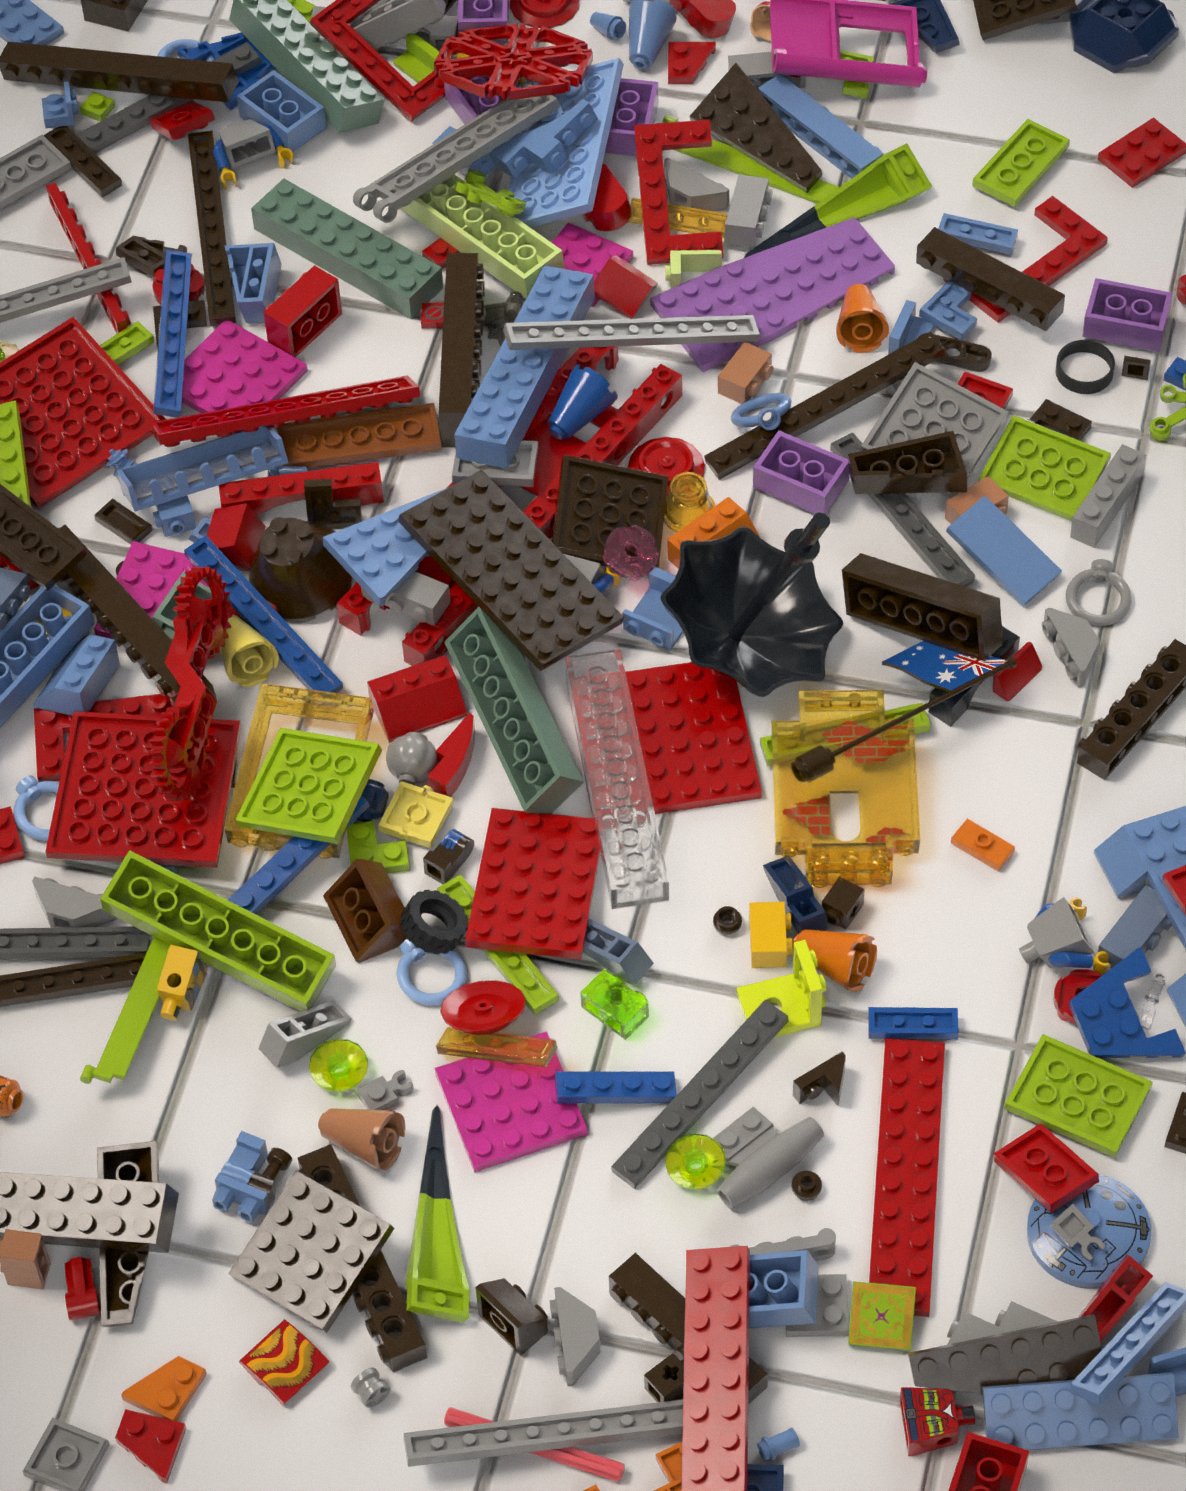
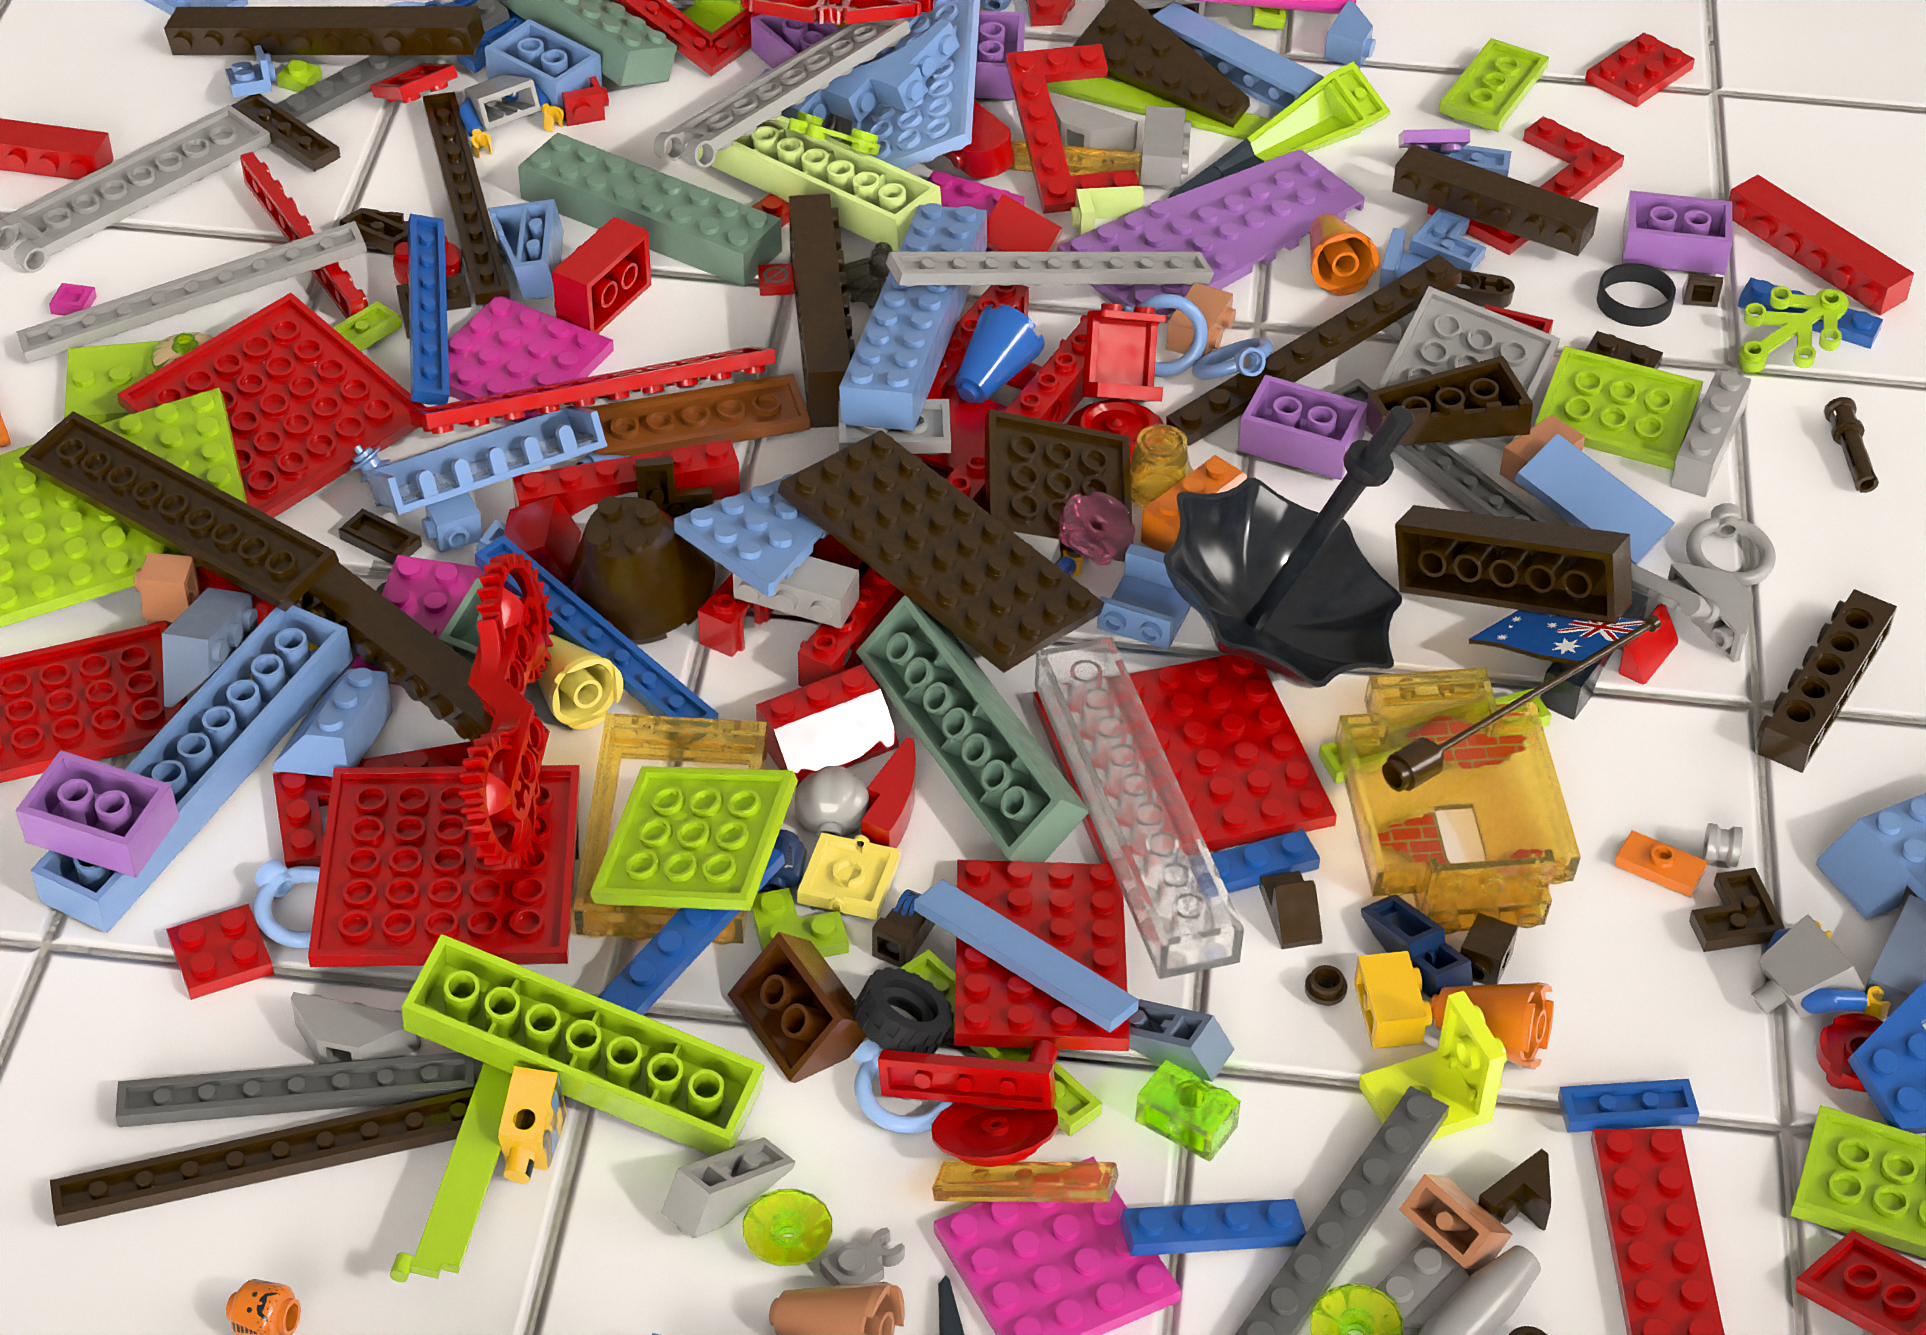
camera: 10 degrees left, 10 degrees down
(310, 147) = (585, 104): none -> red bracket
(473, 973) = (972, 1078): none -> red piece
(521, 887) = (1026, 955): none -> medium blue tile
(675, 407) = (1121, 353): none -> panel
(687, 377) = (1199, 326): none -> medium blue piece
(699, 824) = (1245, 864): none -> blue plate
(716, 861) = (1292, 909): none -> dark brown slope
(774, 1097) = (1455, 1221): none -> nougat brick
(915, 111) = (1350, 37): none -> medium blue slope
(945, 219) = (1448, 139): none -> medium lavender plate
(1027, 835) = (1722, 844): none -> light grey wheel
(1029, 892) = (1743, 918): none -> dark brown plate
(1037, 631) = (1673, 594): none -> light grey plate

